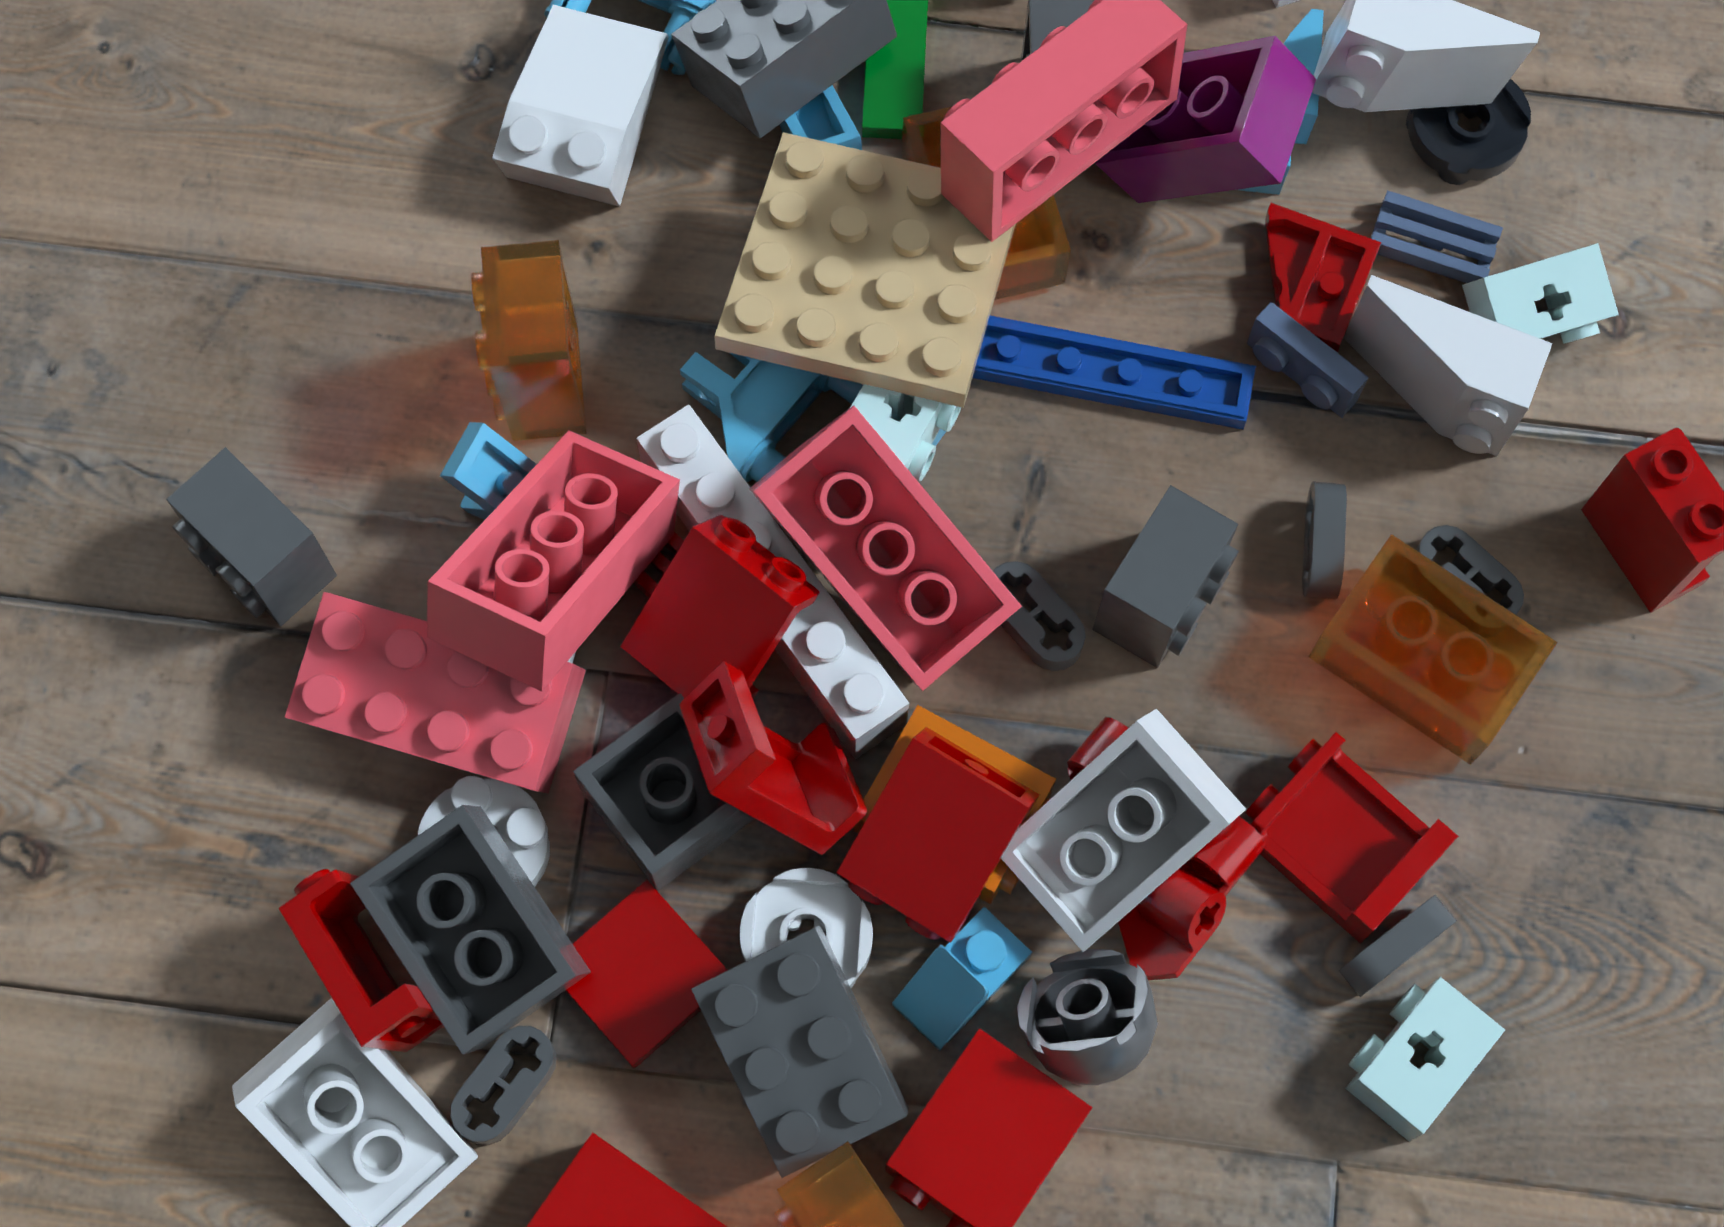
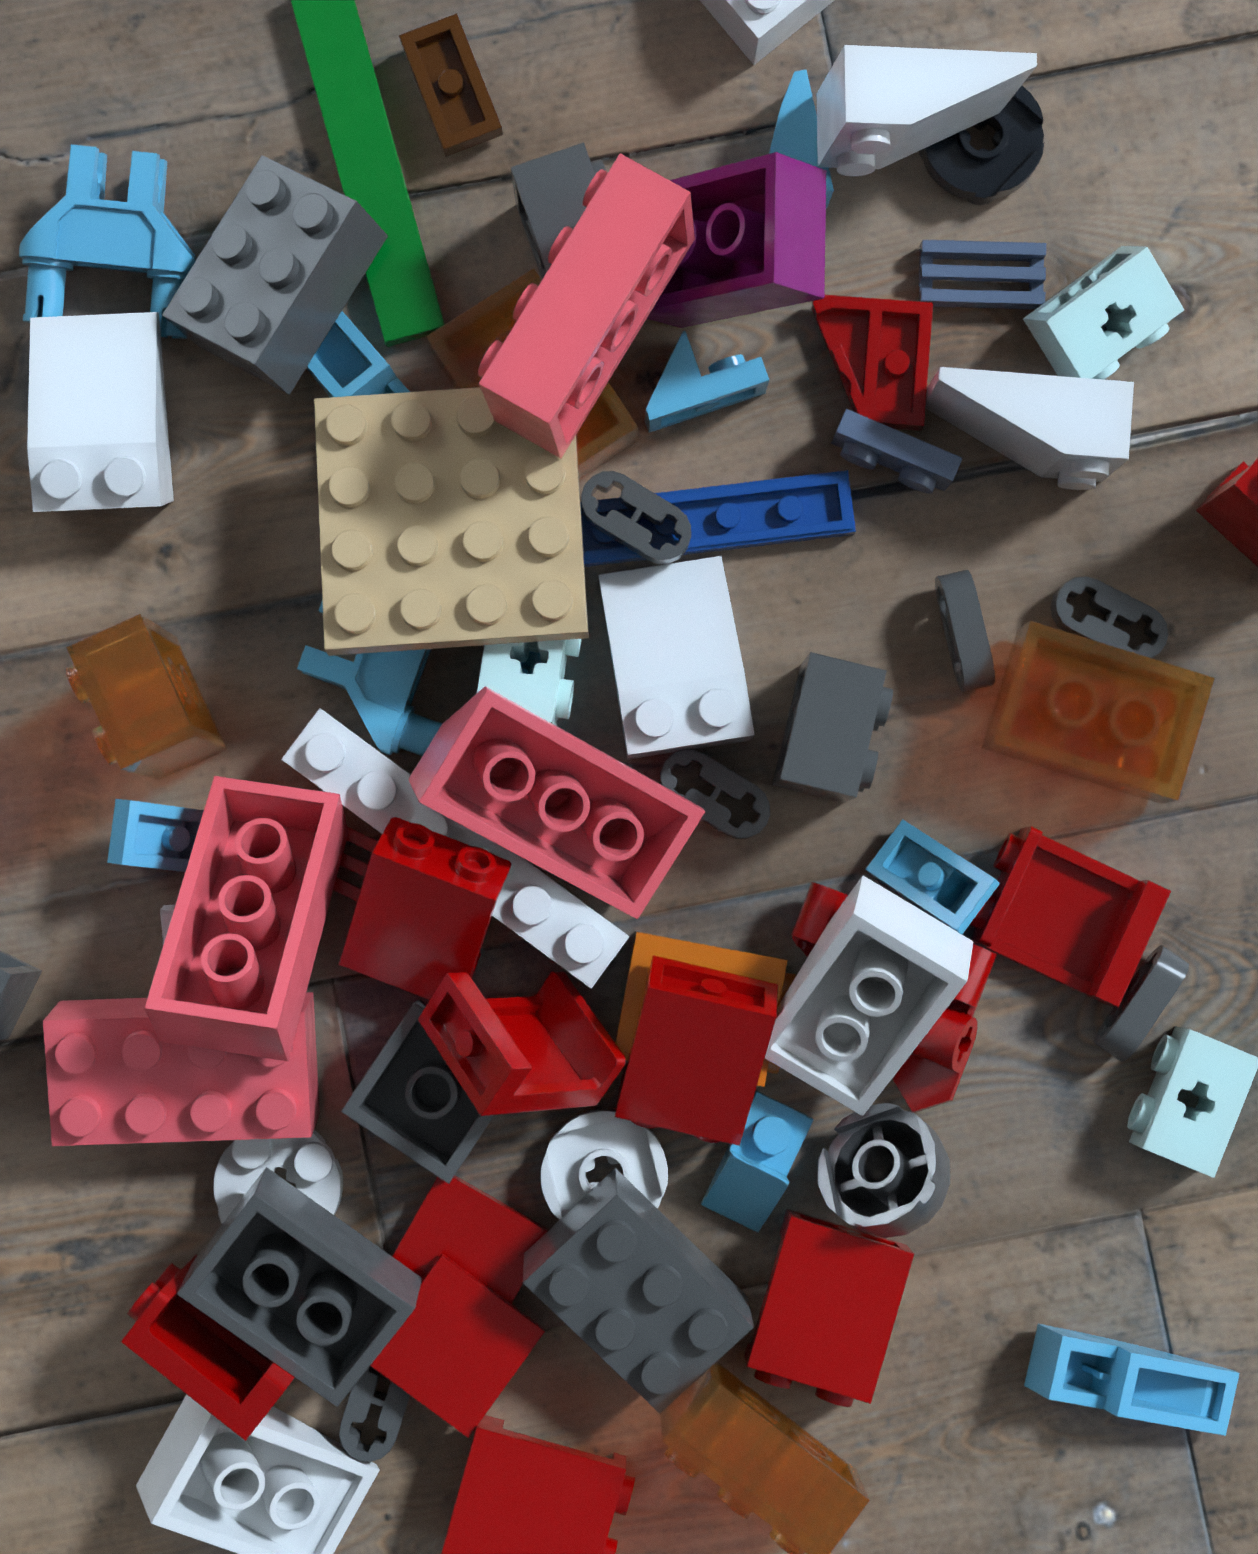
camera: 25 degrees left, 15 degrees up
(600, 1048) = (458, 1346): none -> red tile
(1038, 482) = (676, 657): none -> white slope
(1052, 331) = (645, 505): none -> dark grey beam
(1127, 254) = (685, 394): none -> medium azure slope
(1229, 747) = (932, 877): none -> medium azure slope

